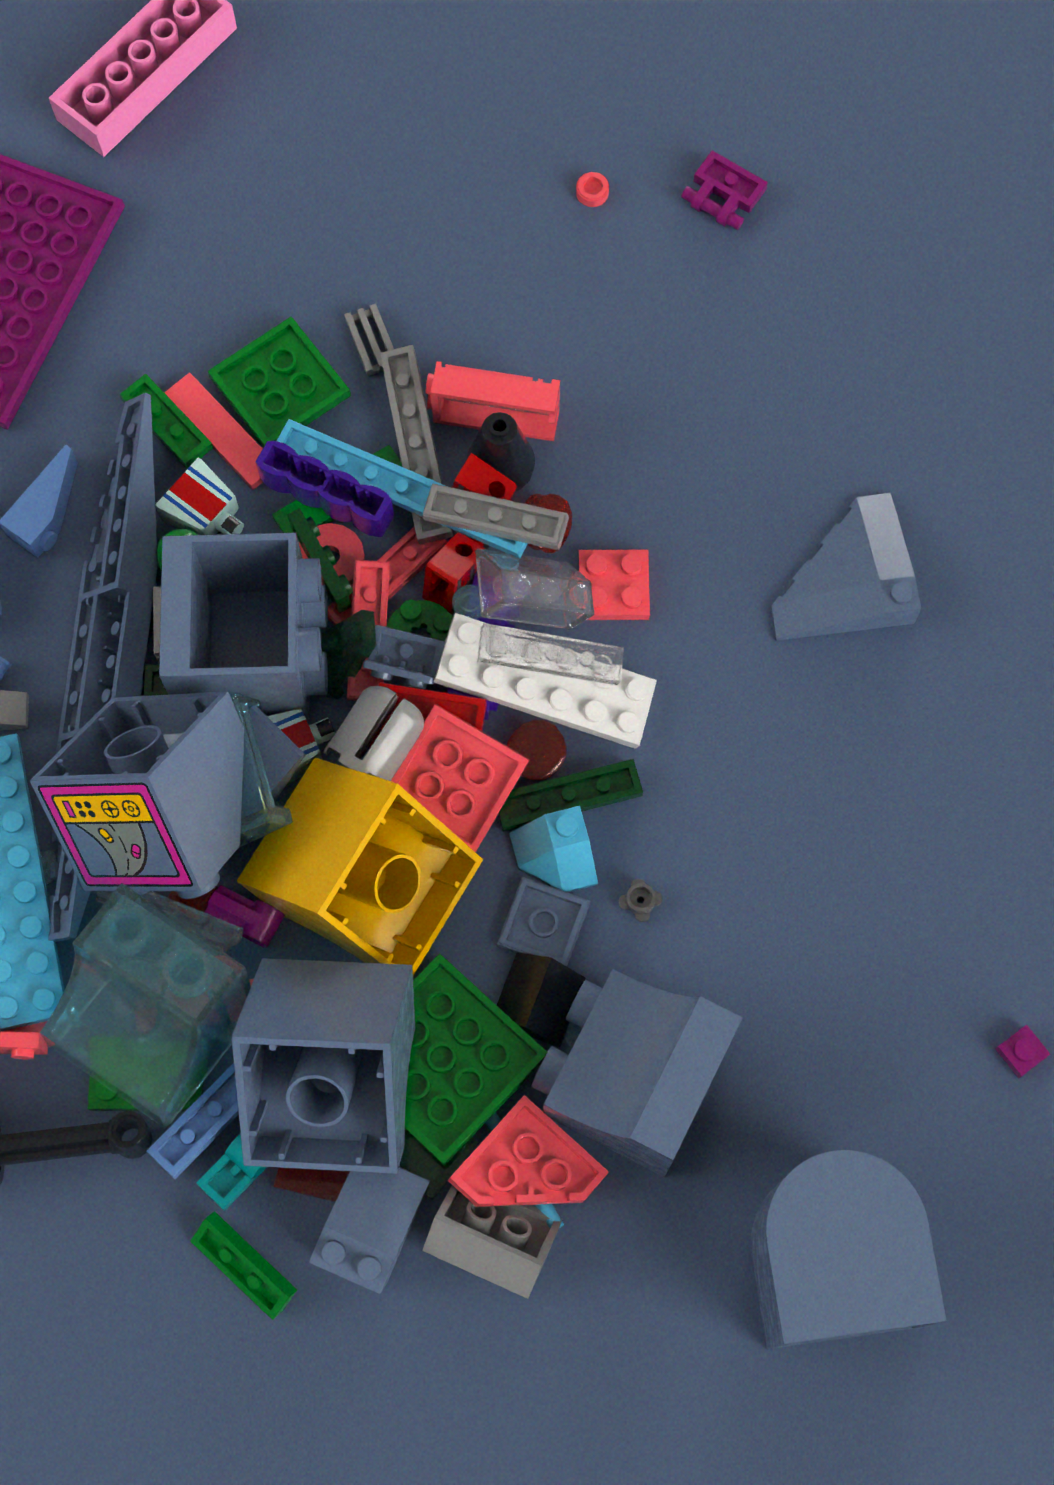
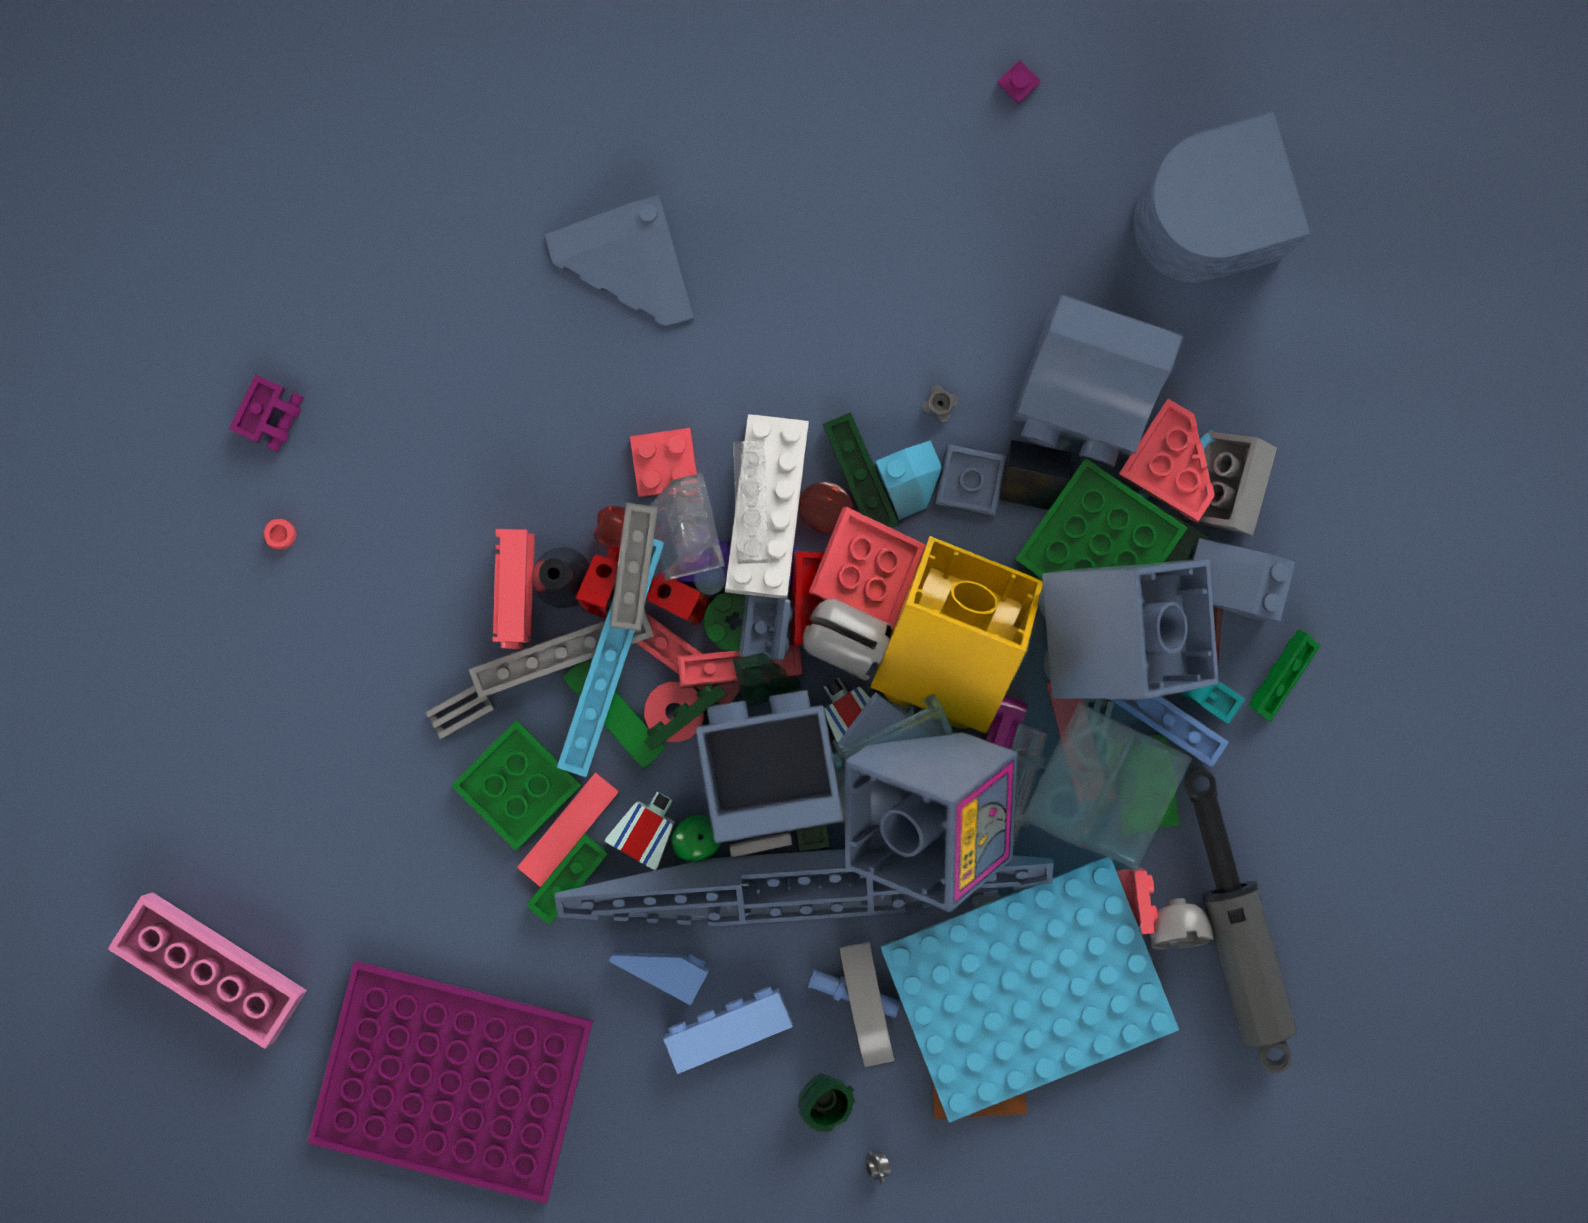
camera: 95 degrees left, 15 degrees up
(319, 487) = (618, 731): dark purple brick -> none

